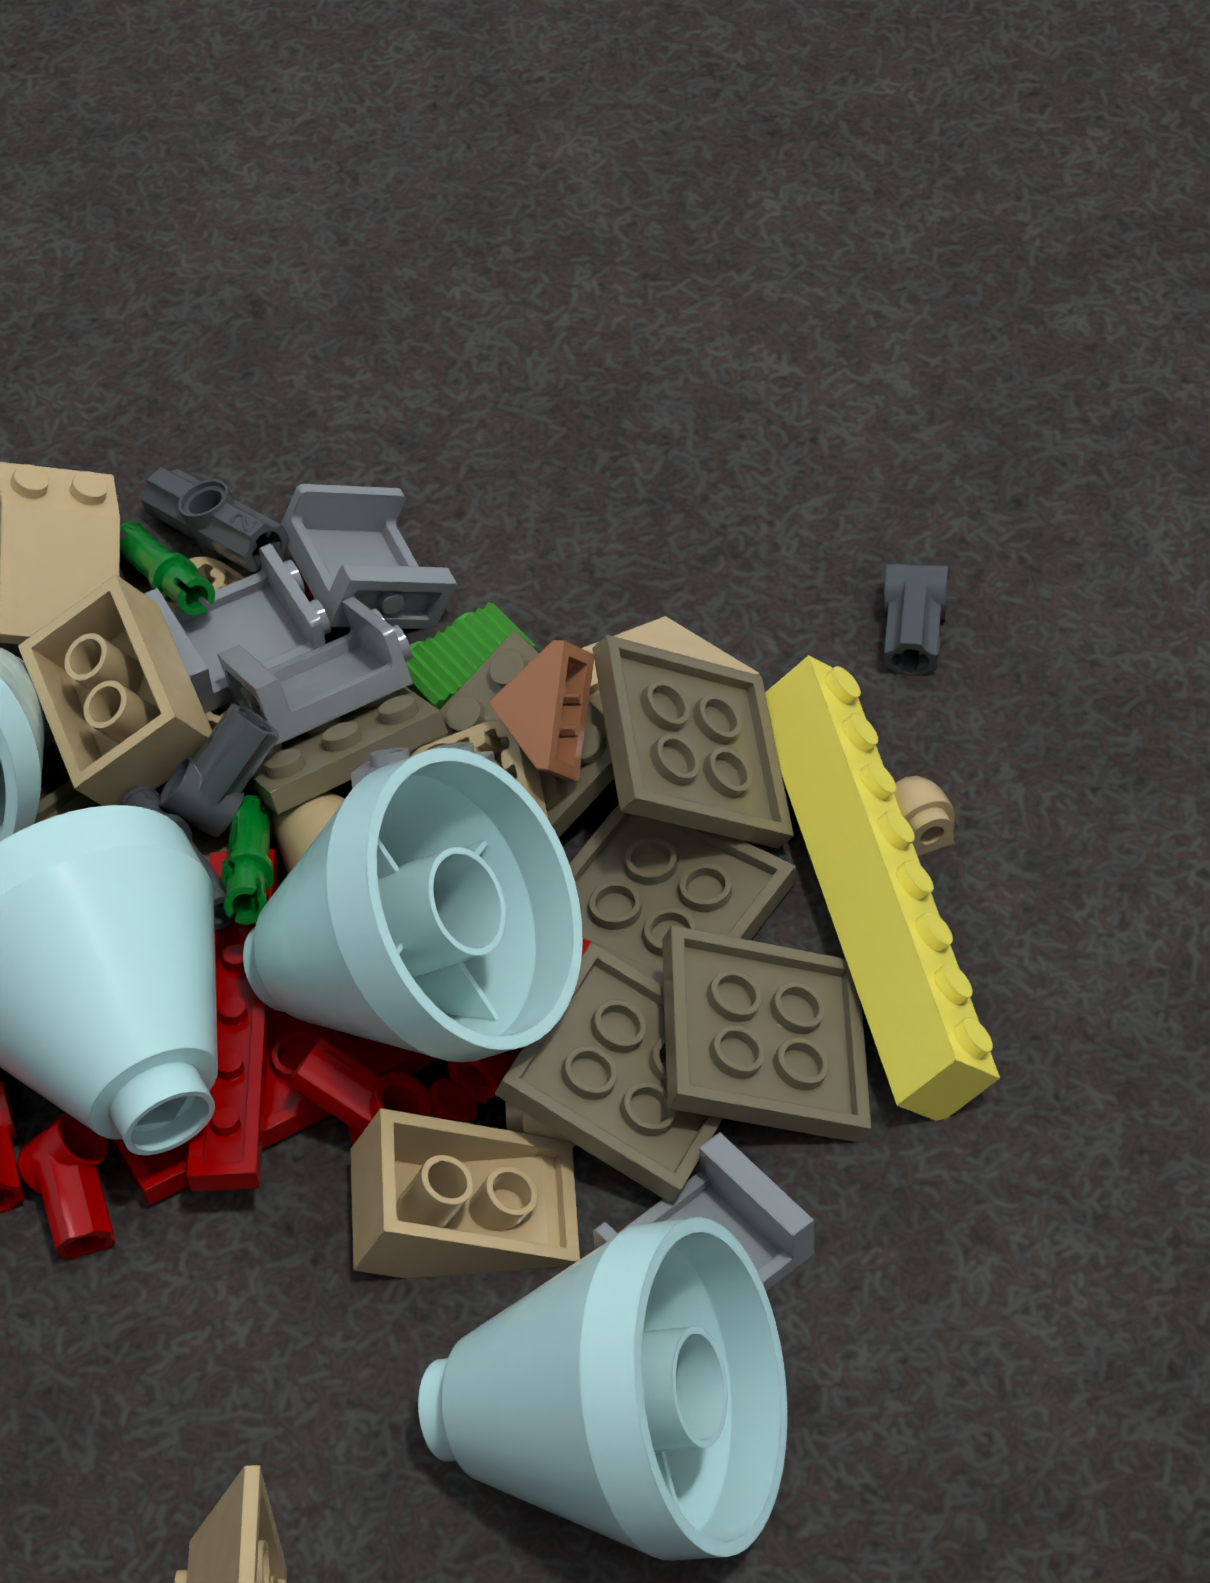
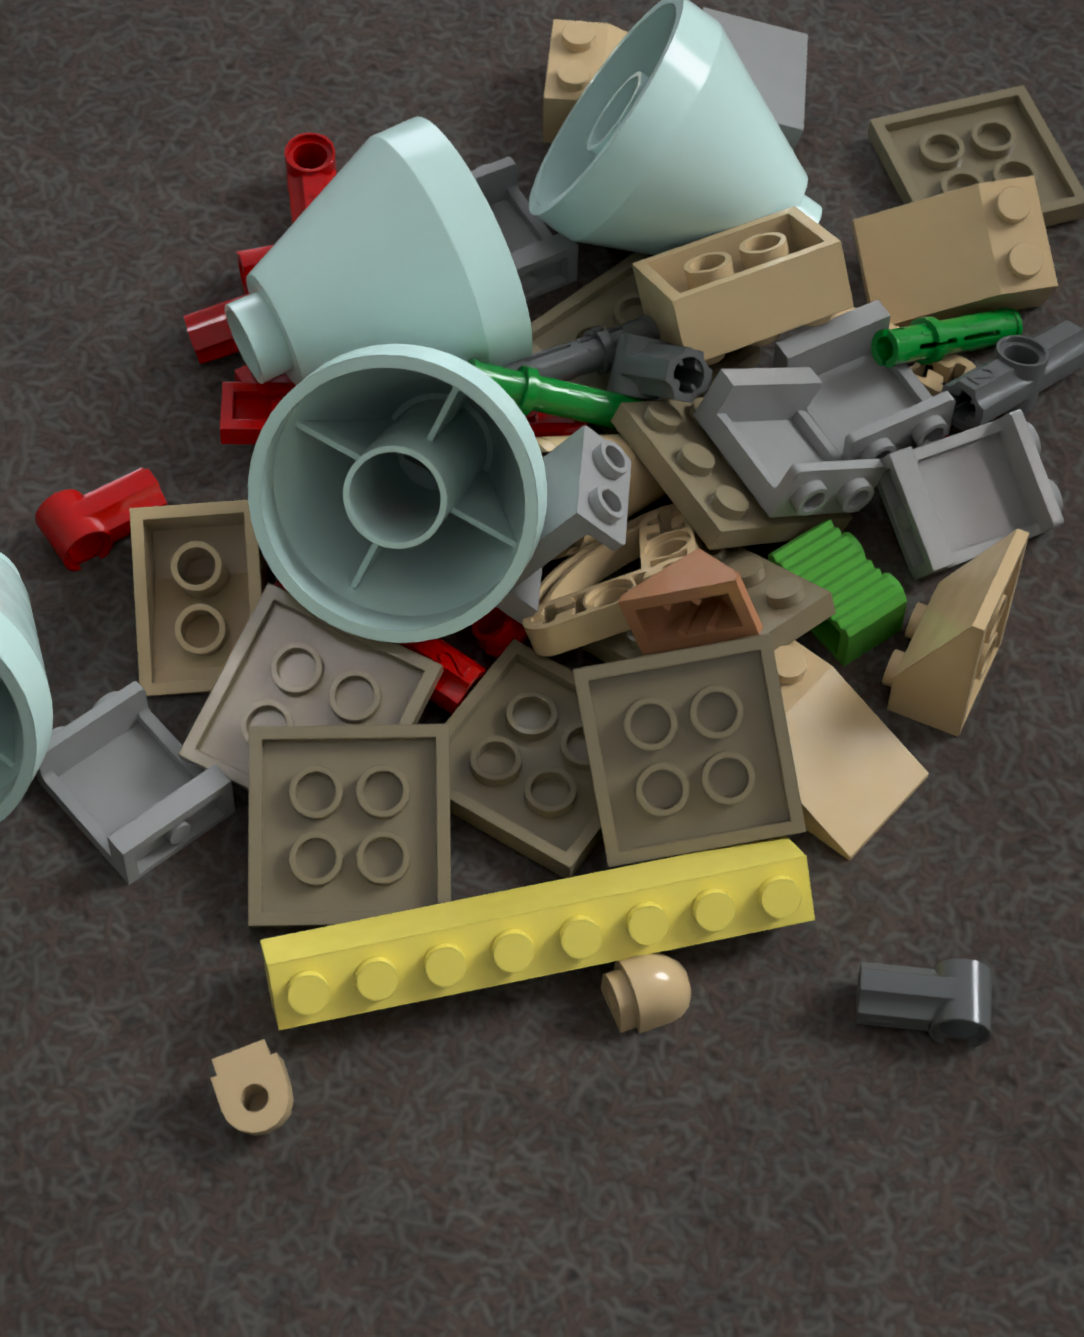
camera: 85 degrees right, 5 degrees up
(347, 1315) = (90, 523): none -> red piece
(549, 545) = (956, 638): none -> tan slope
(1059, 1101) = (253, 1089): none -> tan piece

